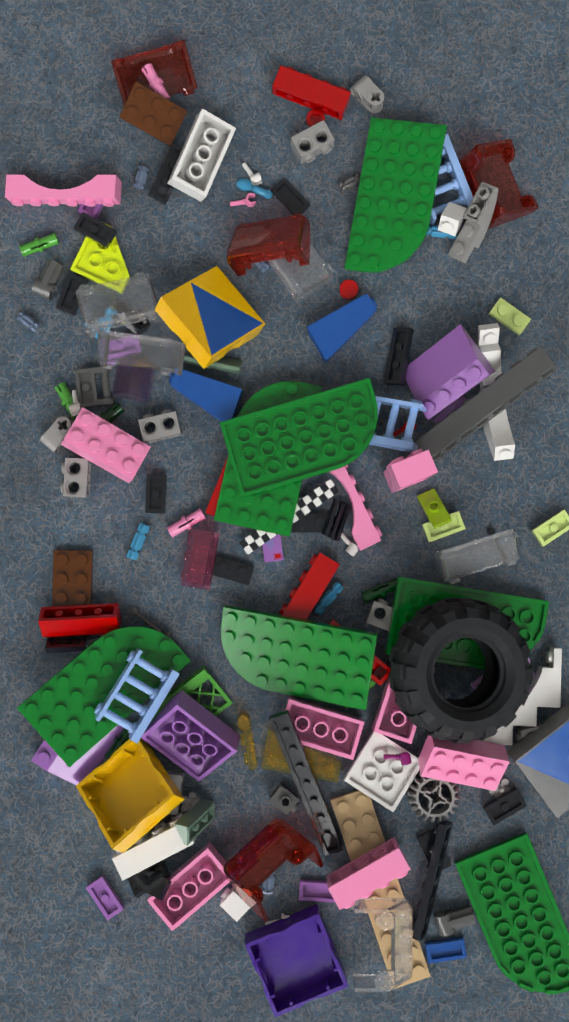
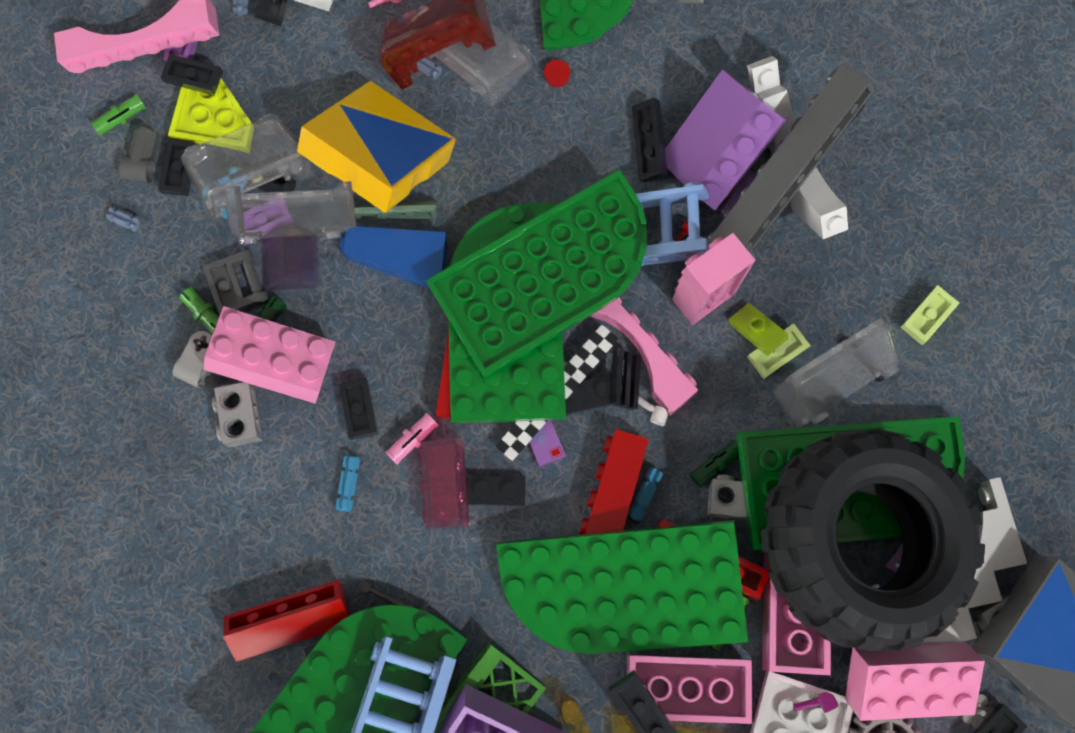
camera: 20 degrees left, 10 degrees down
(66, 644) = (273, 662): black plate -> none
(72, 577) = (262, 561): reddish brown plate -> none
(75, 407) = (213, 315): white hand -> none
(160, 432) = (345, 320): light grey brick -> none
(341, 325) = (556, 123): blue slope -> none
(509, 316) = (789, 58): yellowish green plate -> none

